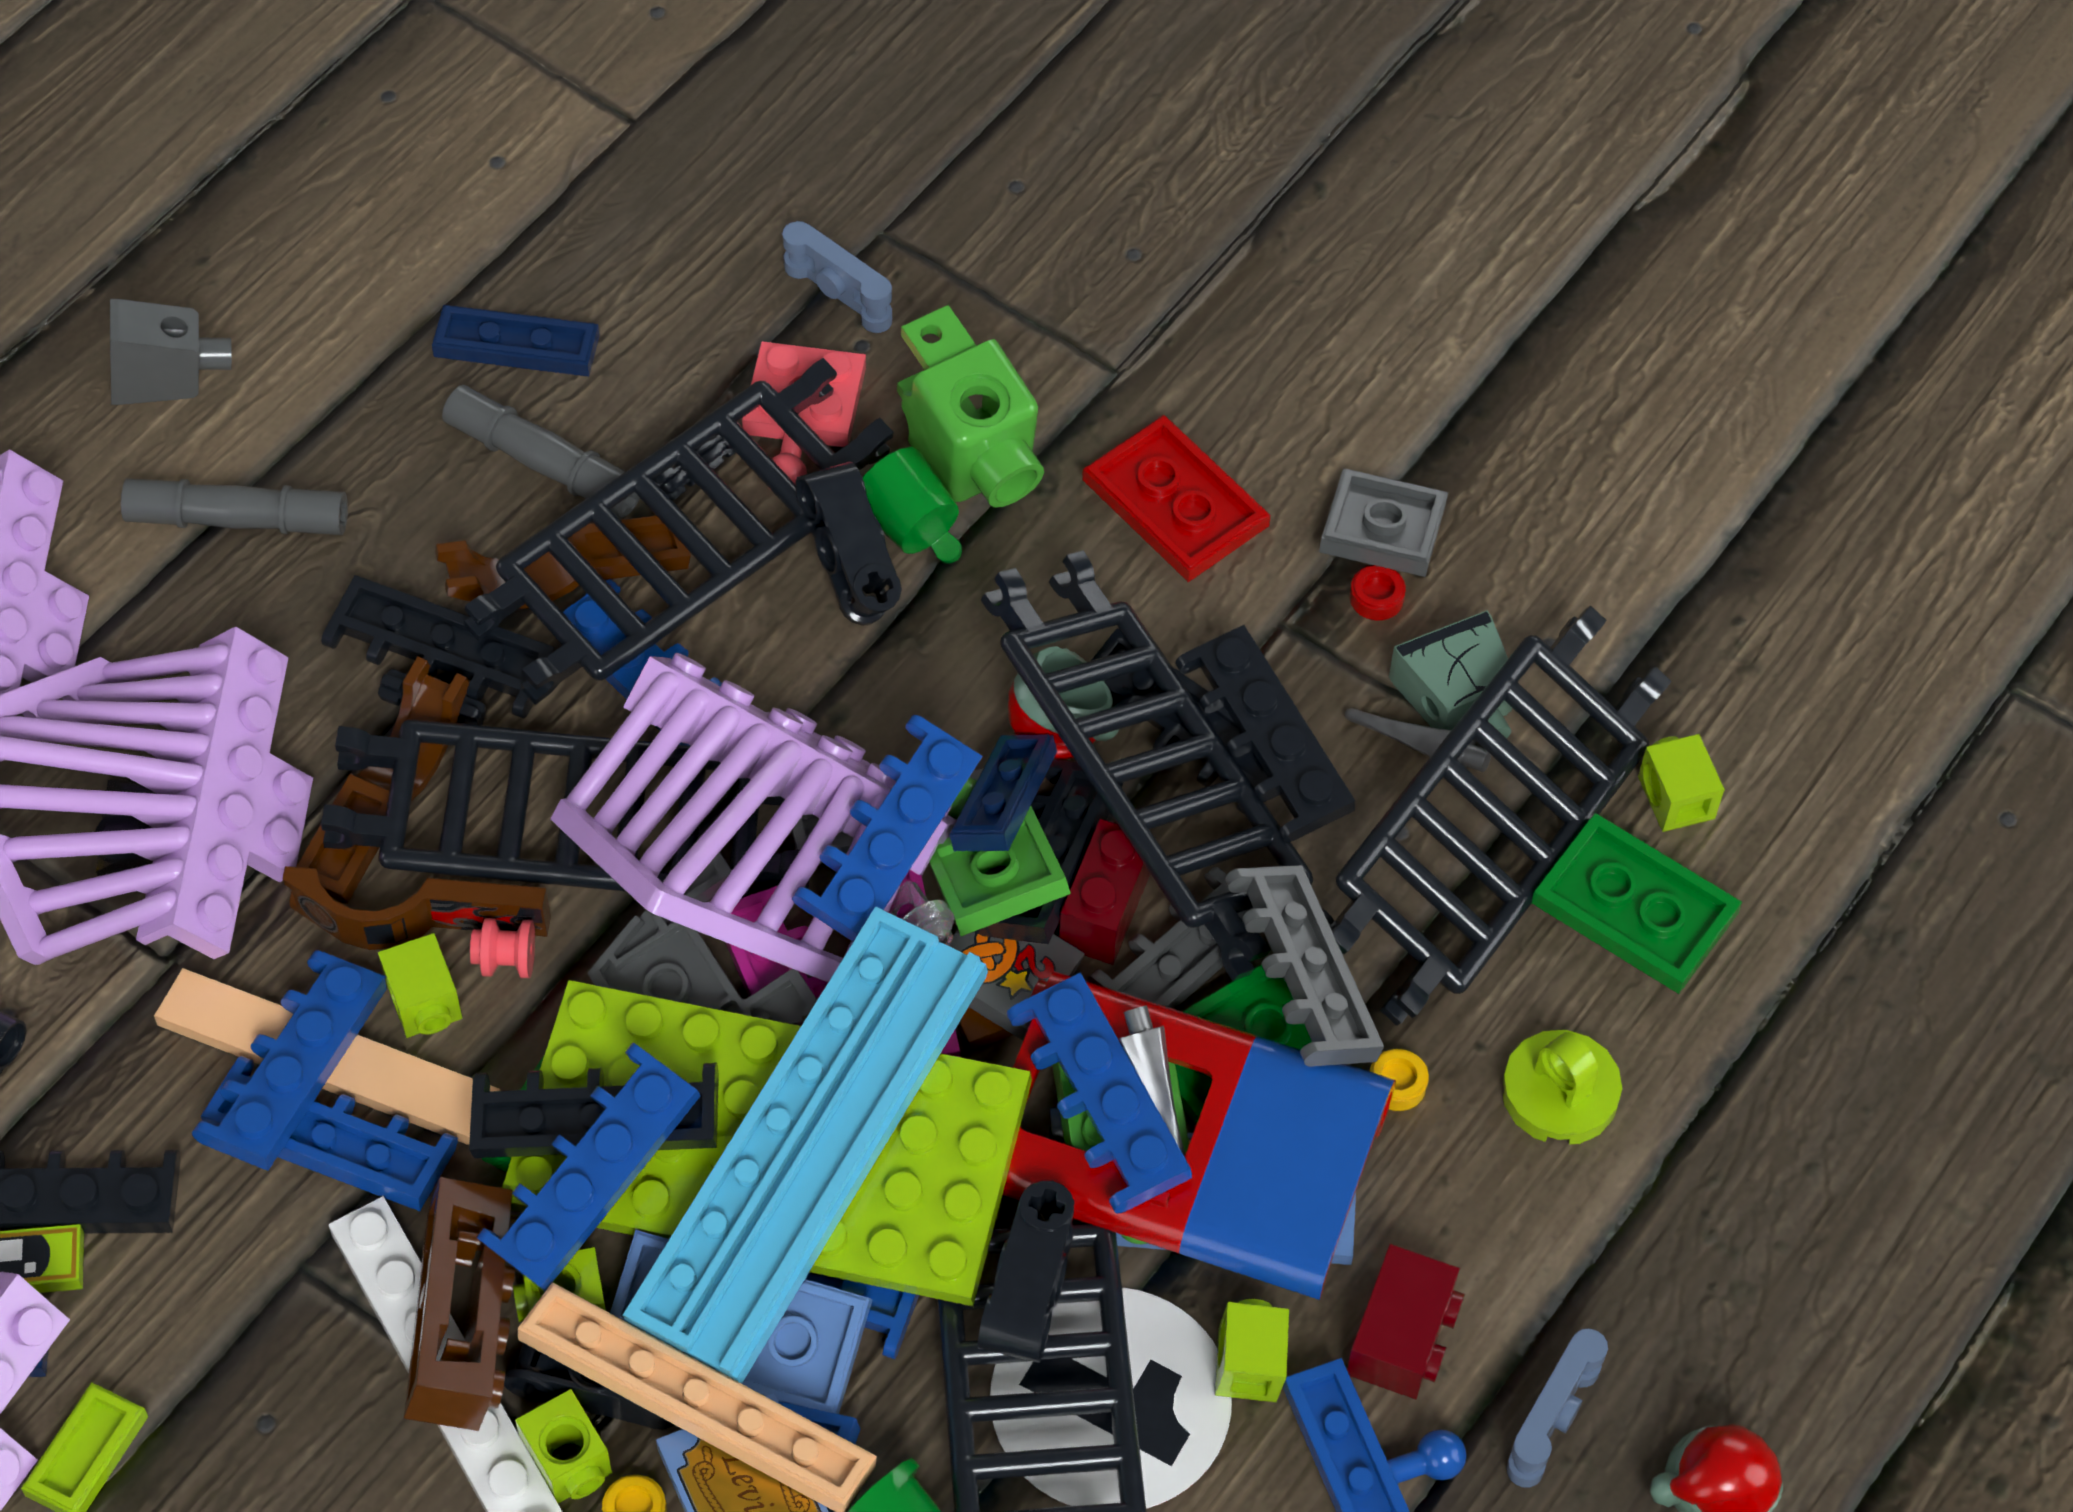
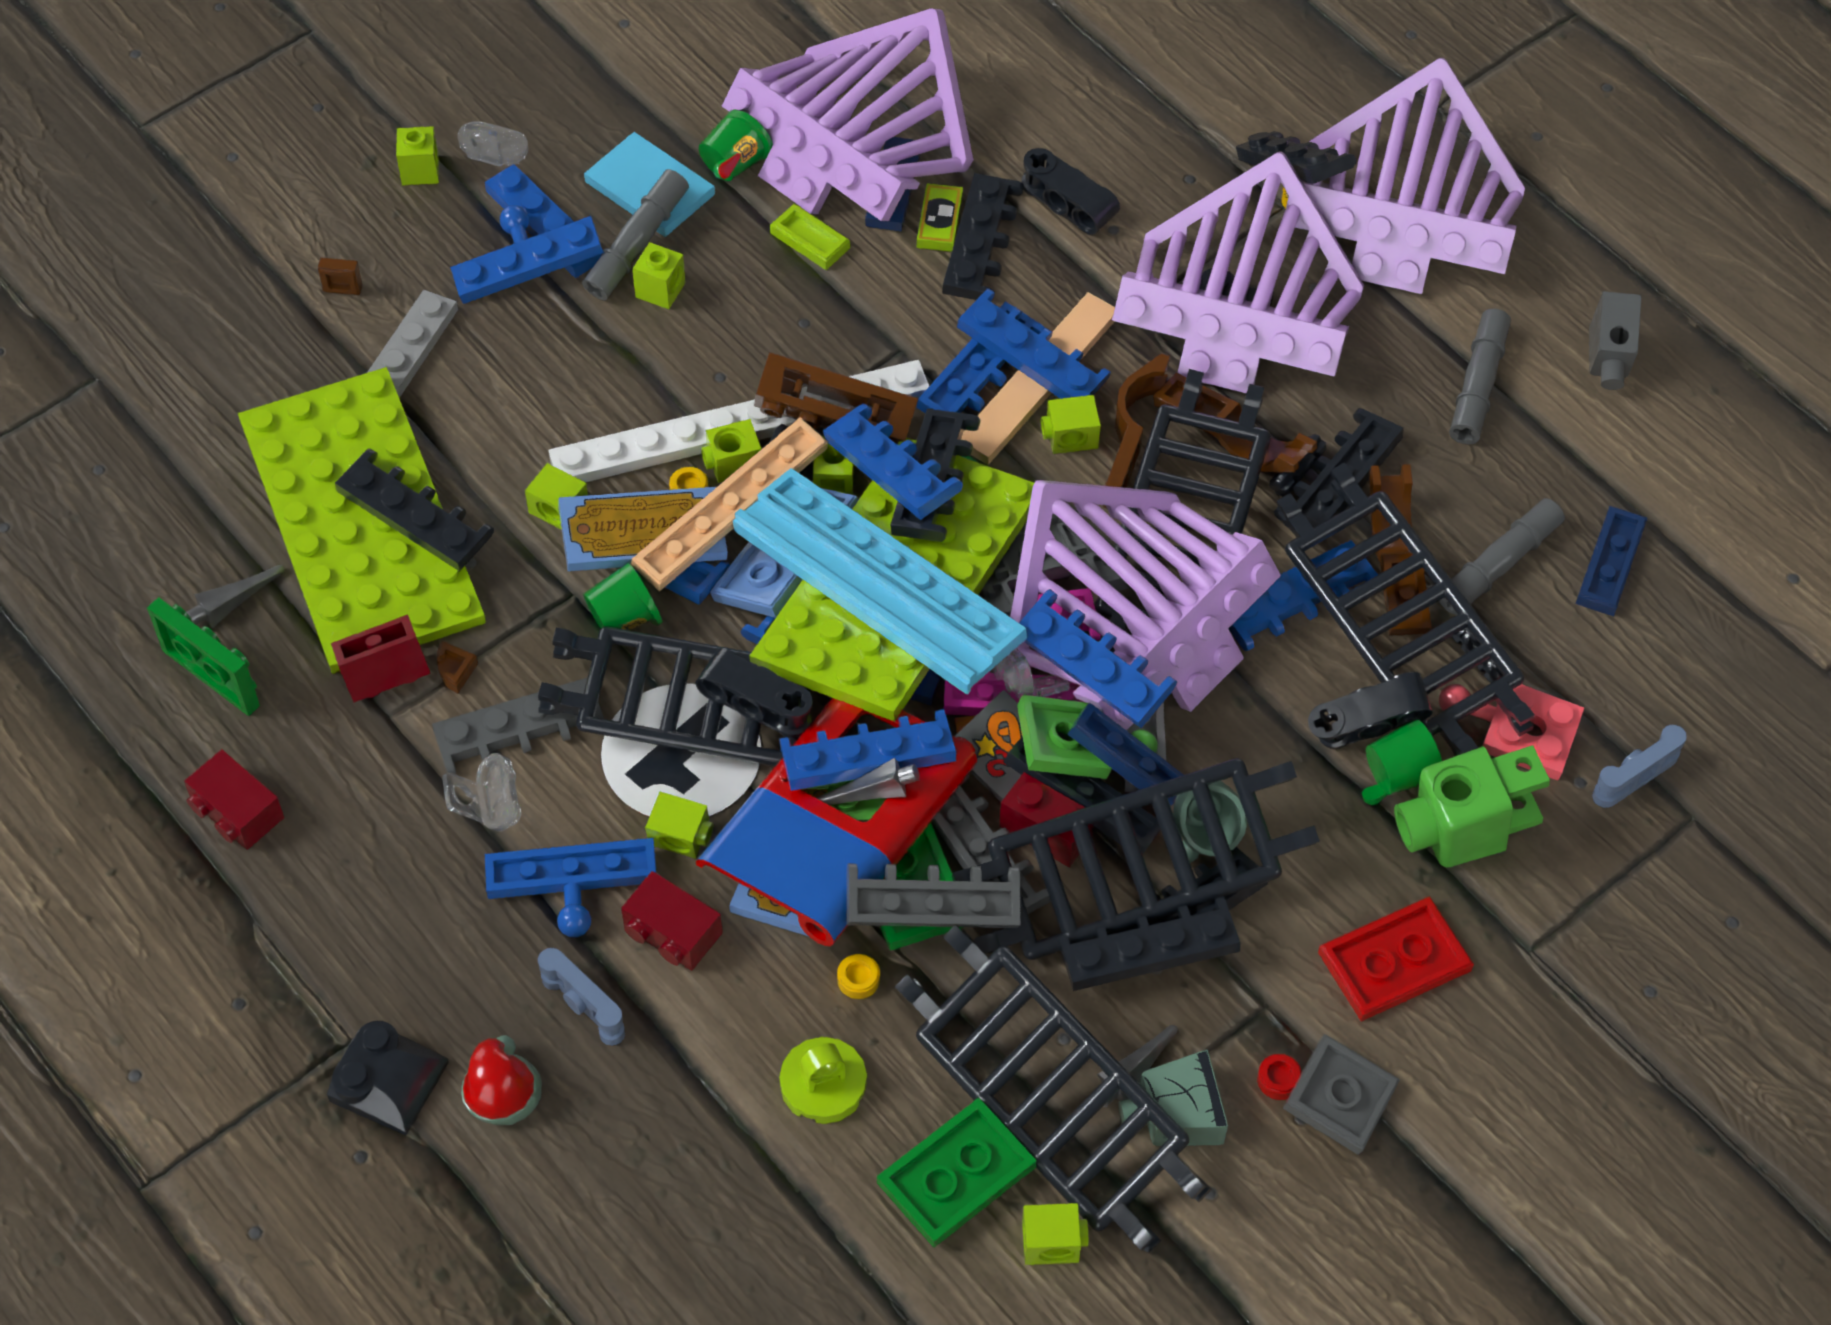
camera: 105 degrees right, 0 degrees up
(503, 948) = (1090, 467): coral wheel -> none

